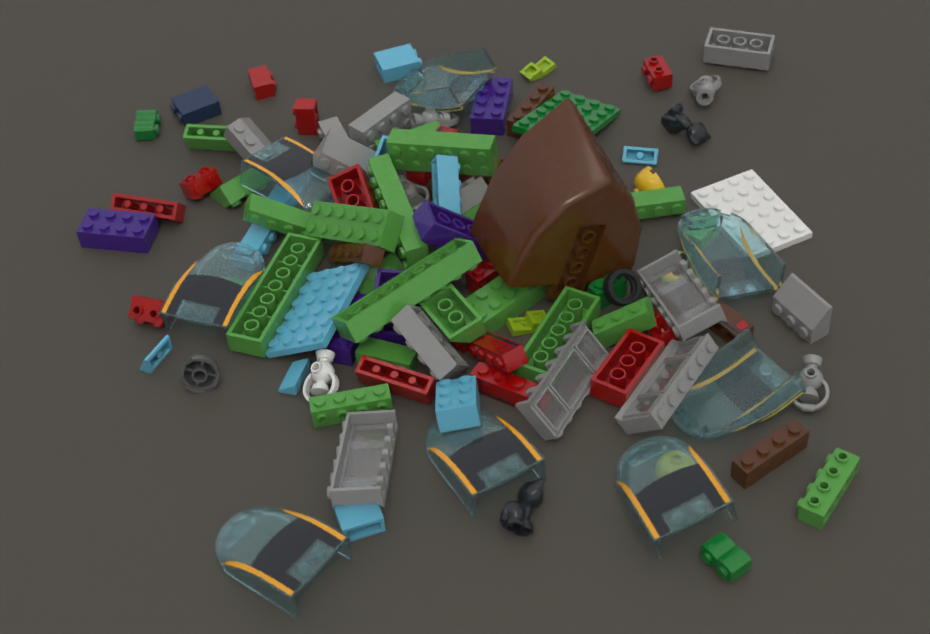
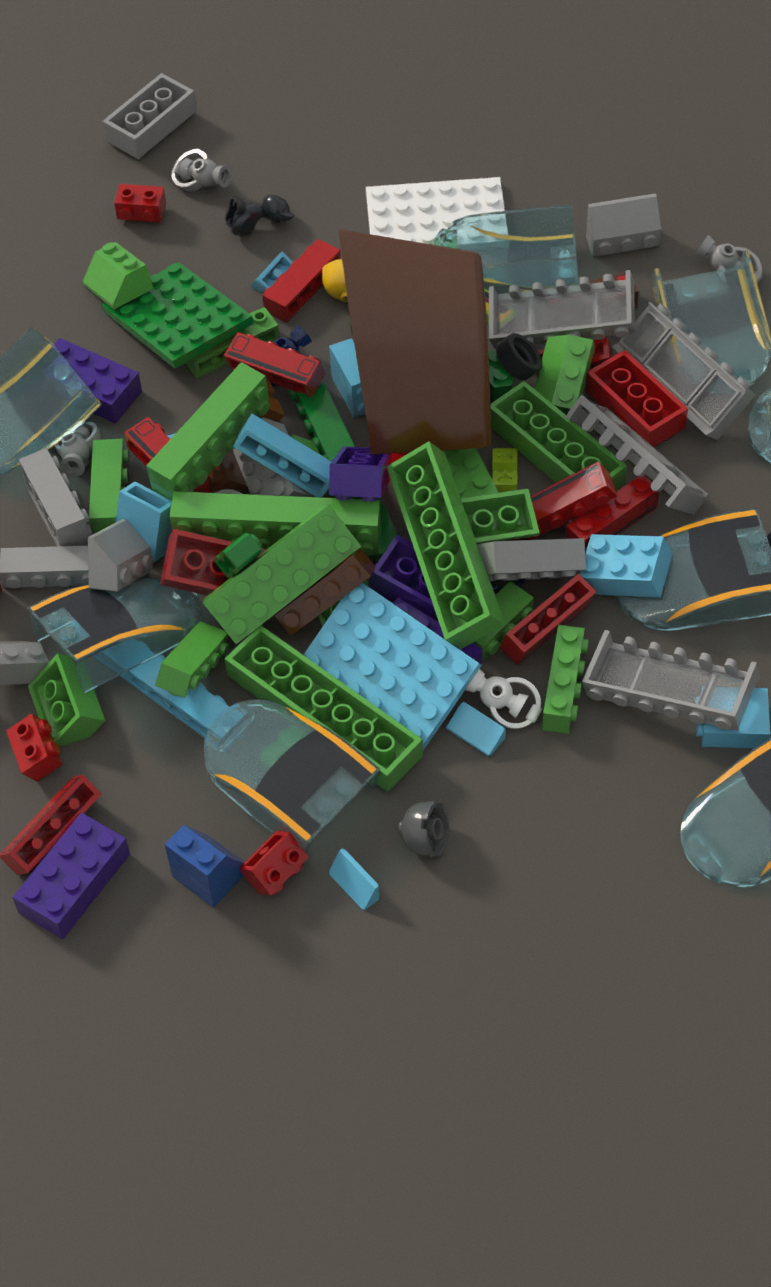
camera: 70 degrees left, 10 degrees up
(138, 275) = (202, 864): none -> blue slope
(351, 196) = (238, 554): none -> green brick
(537, 97) = (126, 344): reddish brown brick -> none
(538, 70) = (38, 313): lime slope -> none
(585, 85) = (117, 275): none -> bright green slope
(630, 164) = (299, 281): none -> red brick

